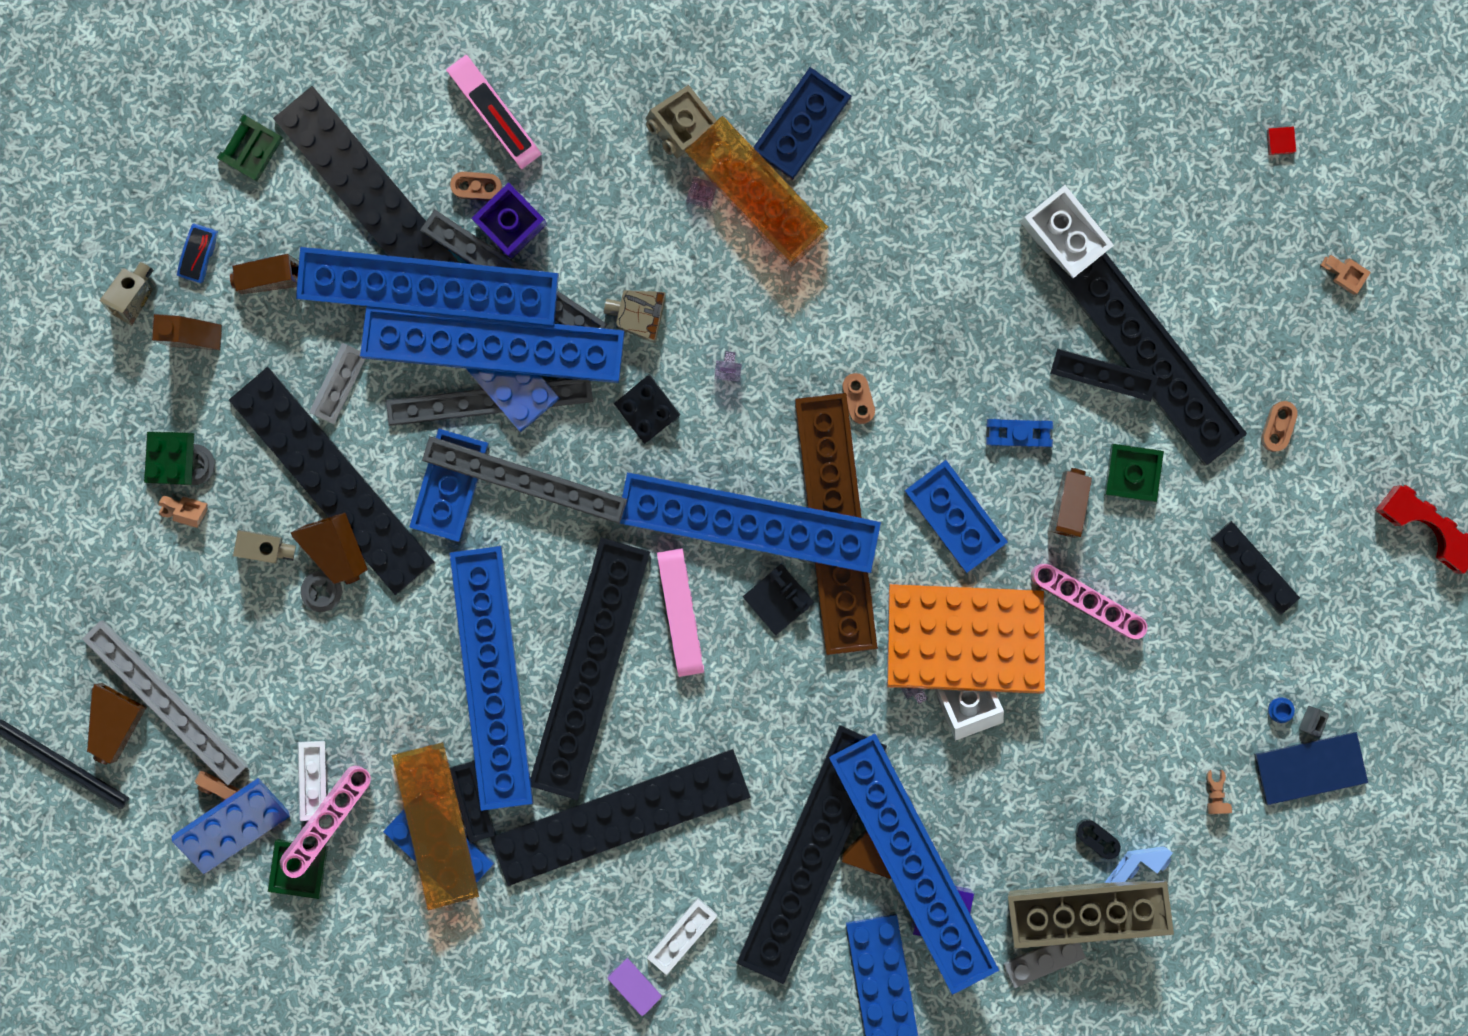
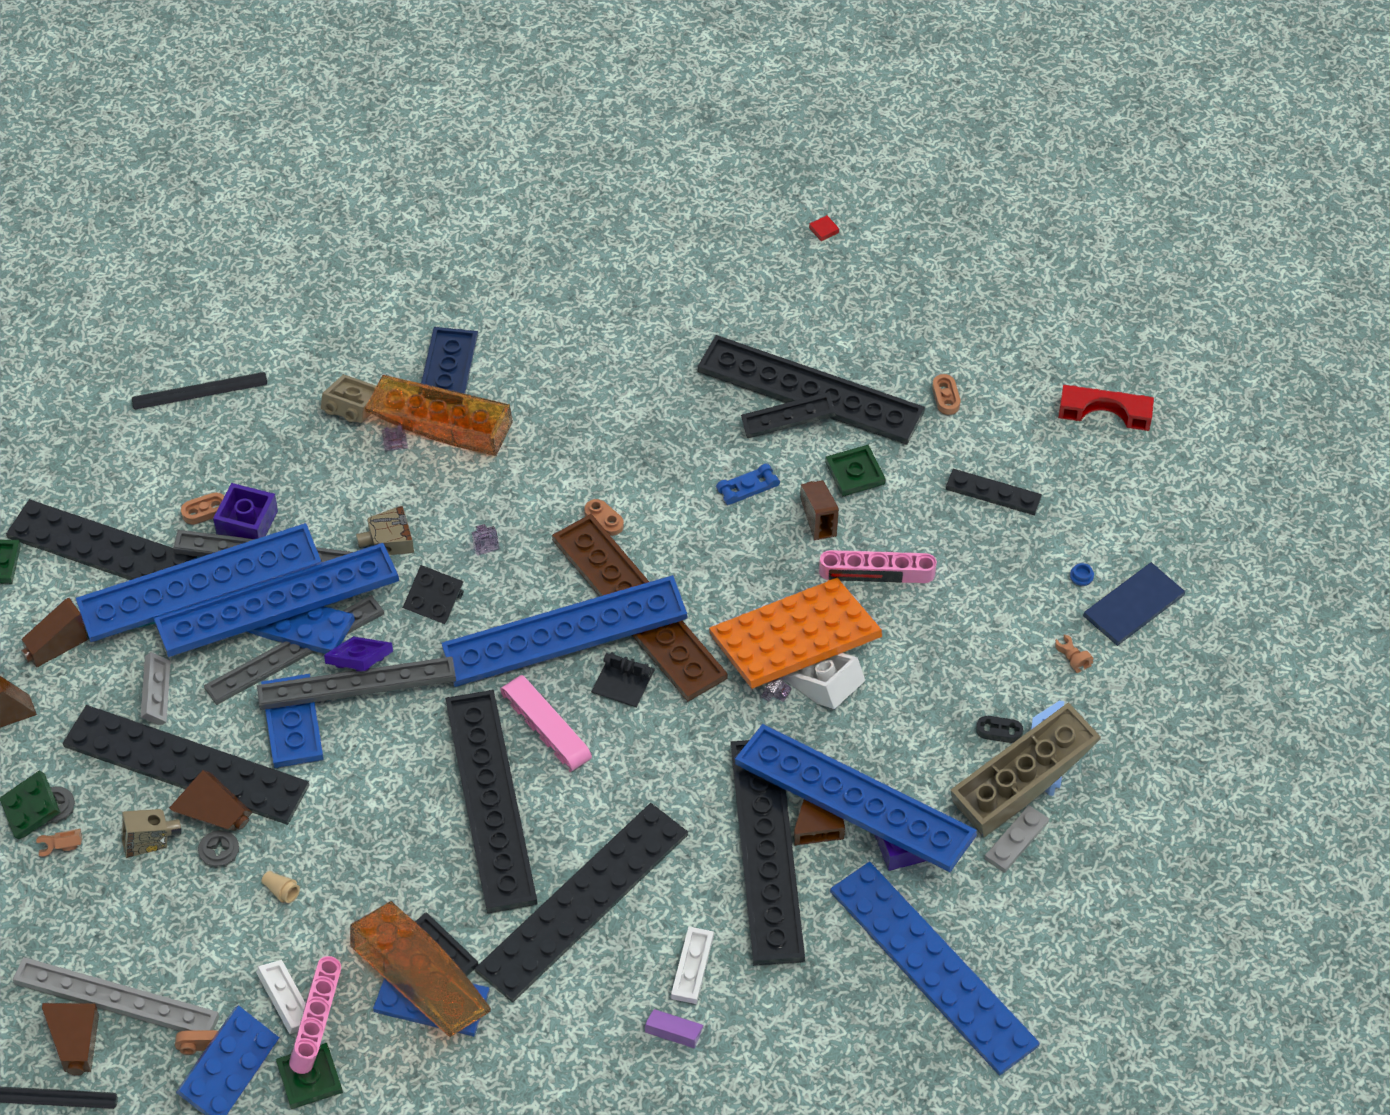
camera: 25 degrees left, 35 degrees down
(358, 663) = (282, 887): none -> tan cone
(491, 678) = (409, 843): blue plate -> none
(493, 111) = (193, 453): beam -> none
(537, 28) = (199, 390): none -> black axle
(541, 448) = (358, 653): none -> dark purple plate
(955, 516) = (733, 559): blue plate -> none
(1066, 232) = (696, 337): white slope -> none
(1314, 721) = (1112, 570): dark grey slope -> none
(1349, 274) = (930, 282): nougat plate -> none

